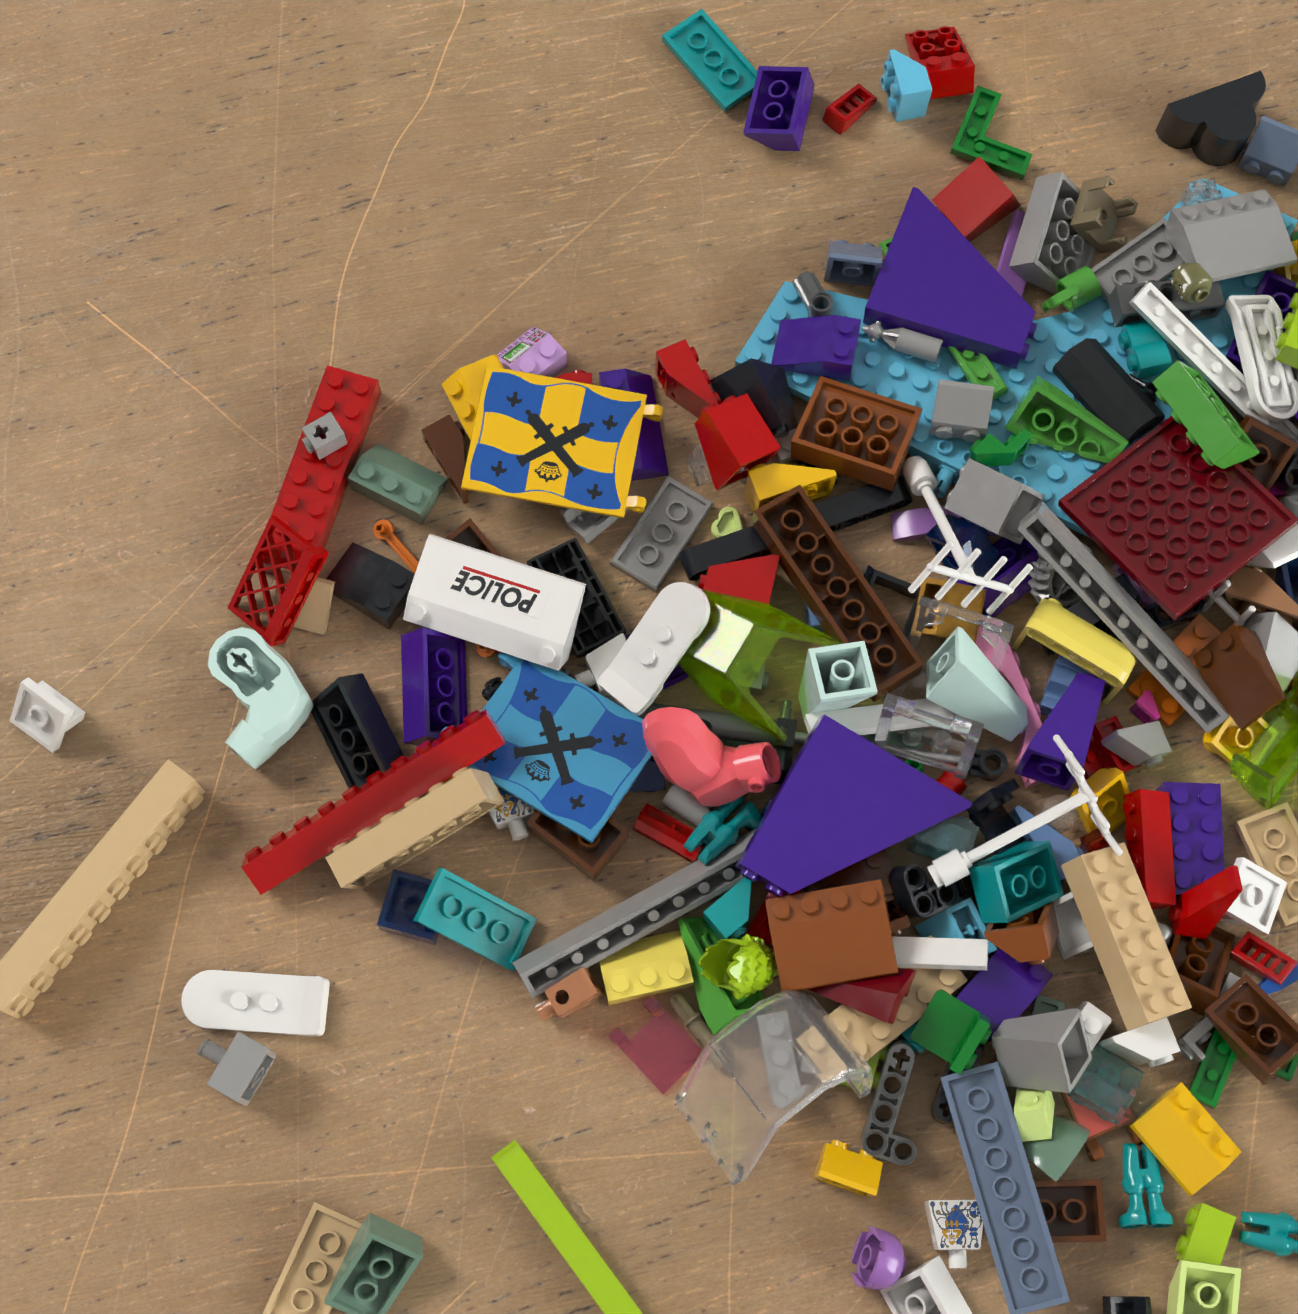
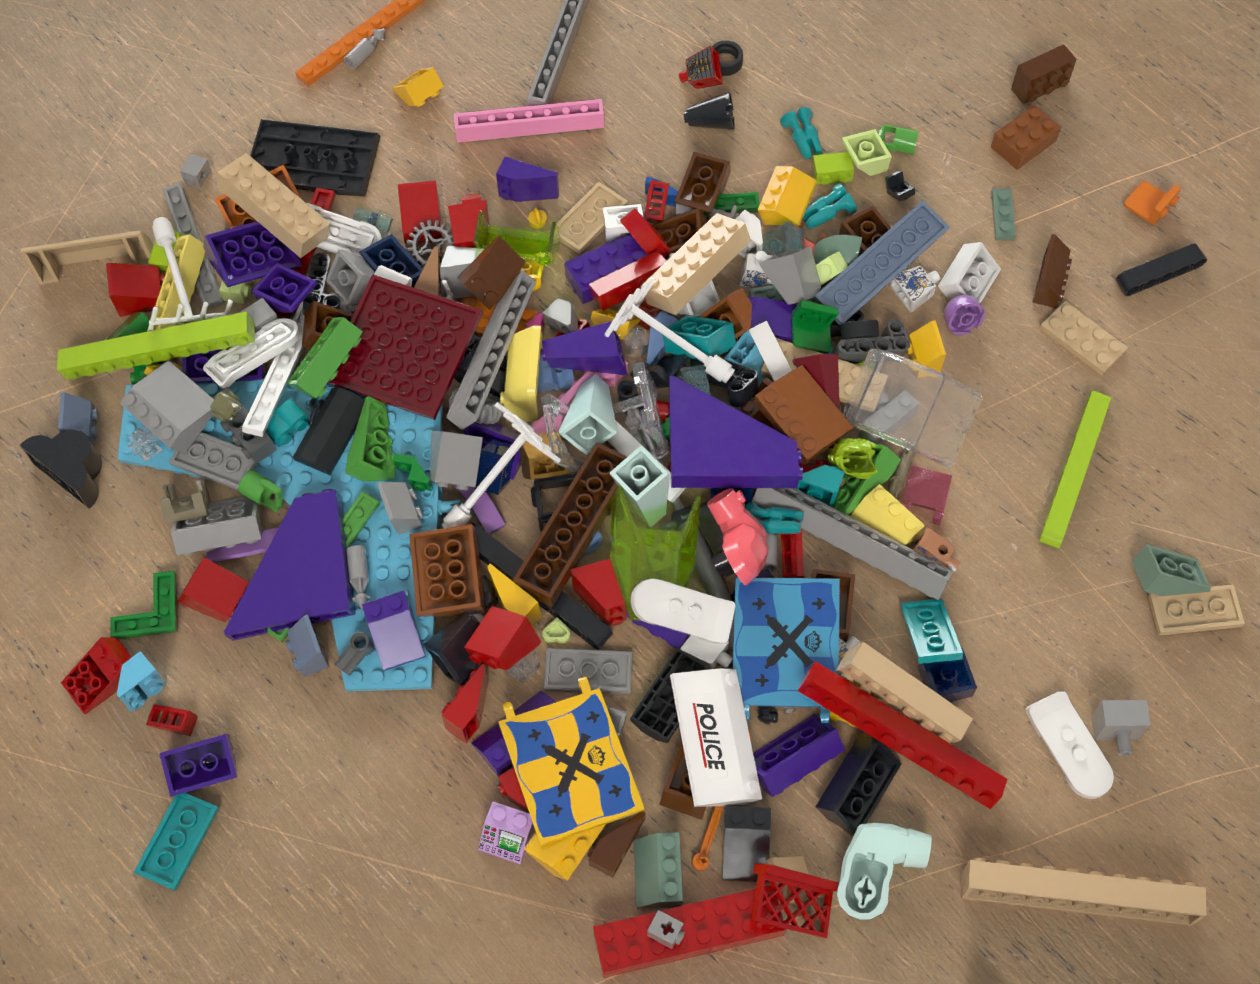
camera: 115 degrees left, 10 degrees down
(917, 1091) = (859, 329): none -> black tyre

